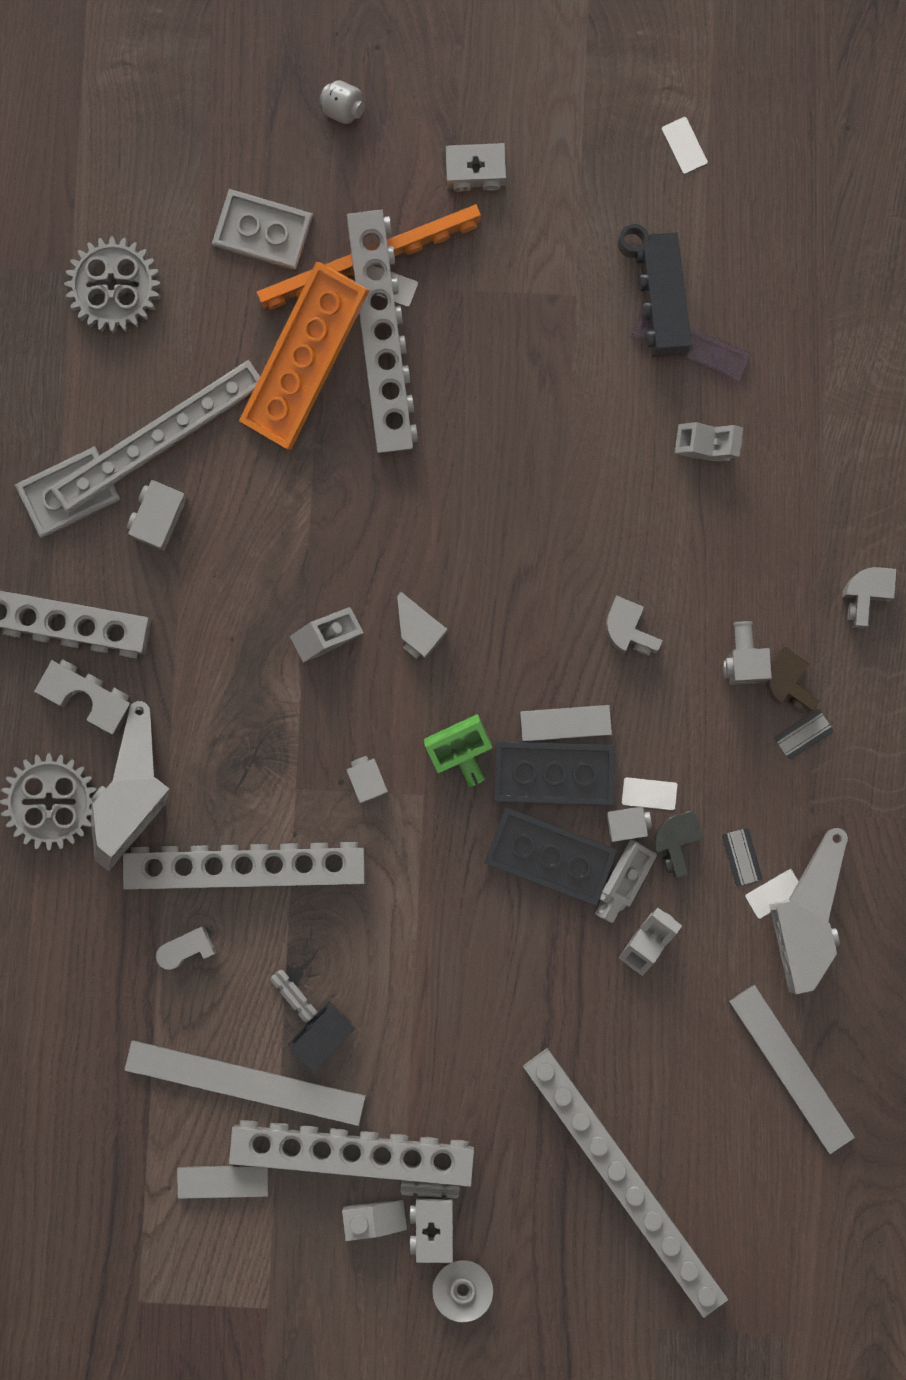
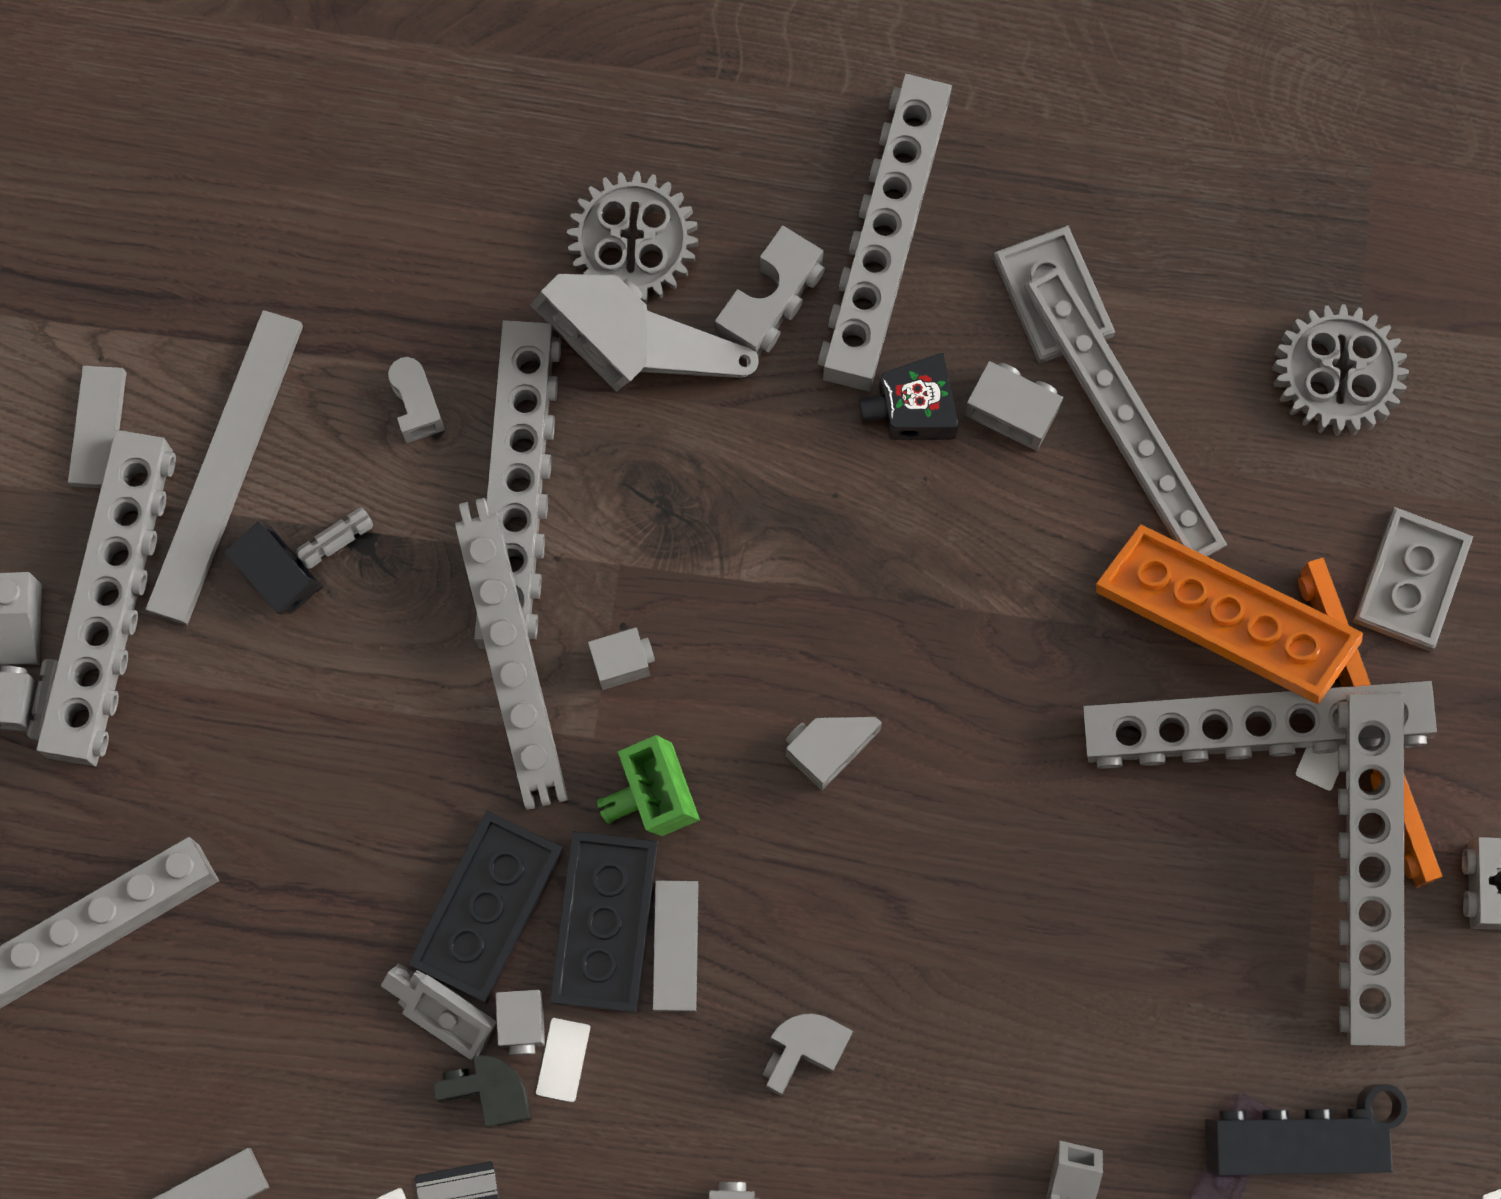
camera: 90 degrees right, 10 degrees down
(160, 586) = (914, 402): none -> black torso
(326, 634) = (830, 619): light grey slope -> none
(373, 857) = (510, 655): none -> light grey hinge
(577, 240) = (1385, 1022): none -> light grey brick
(649, 941) = (347, 1035): light grey brick -> none

